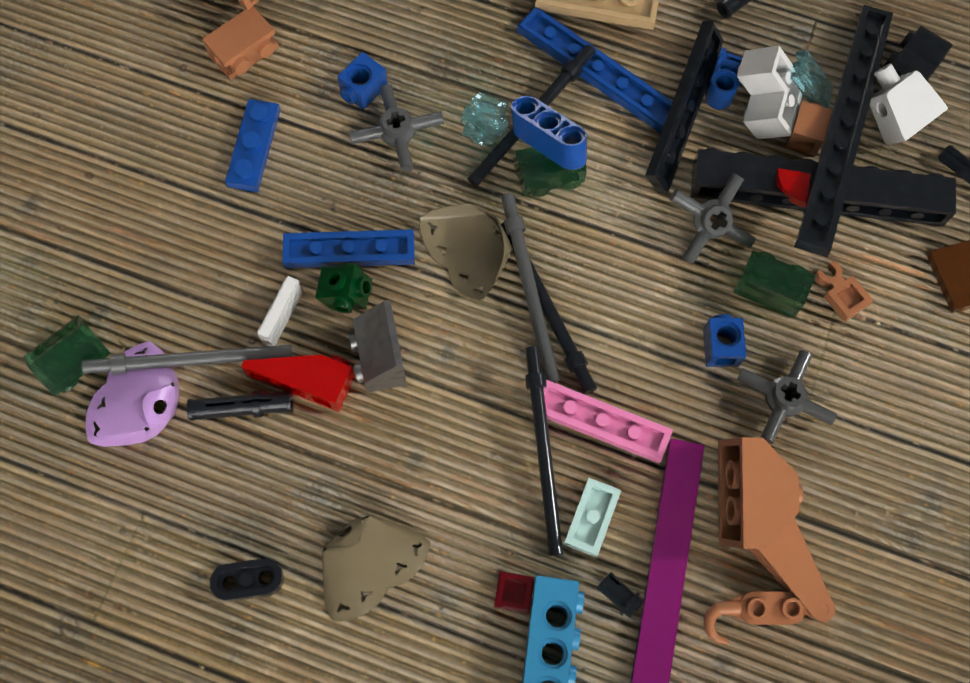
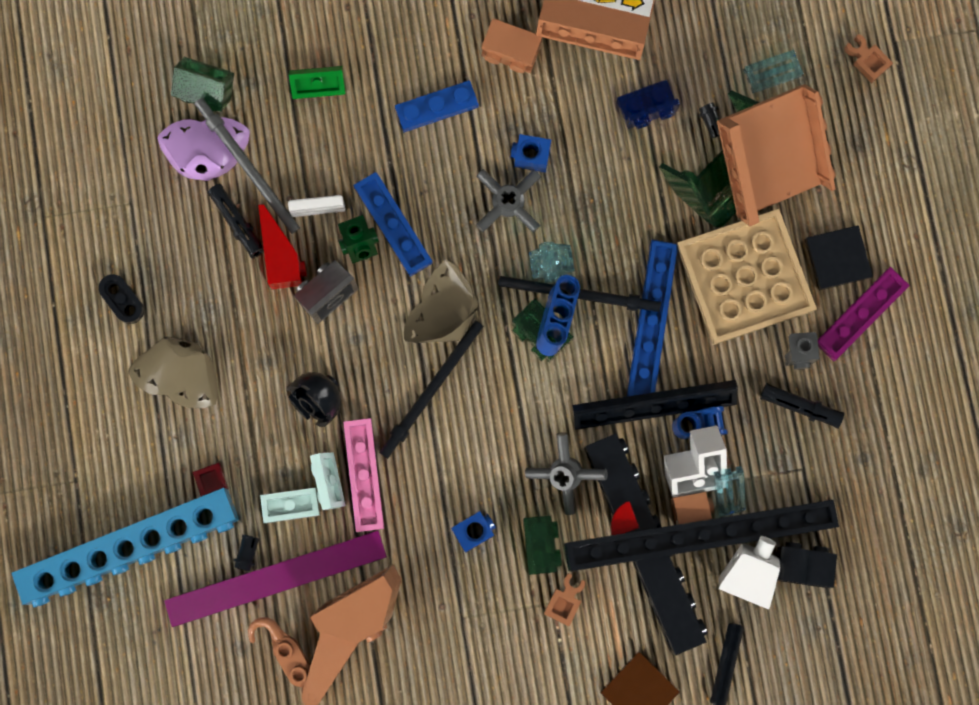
camera: 60 degrees right, 10 degrees up
(147, 241) = (317, 82): none -> green plate
(490, 422) = (316, 396): none -> black cylinder
(515, 227) = (475, 332): dark grey bar -> none
(536, 383) = (360, 413): black bar -> none
(601, 466) = (327, 481): none -> light aqua plate
(797, 397) = (442, 598): dark grey bar -> none

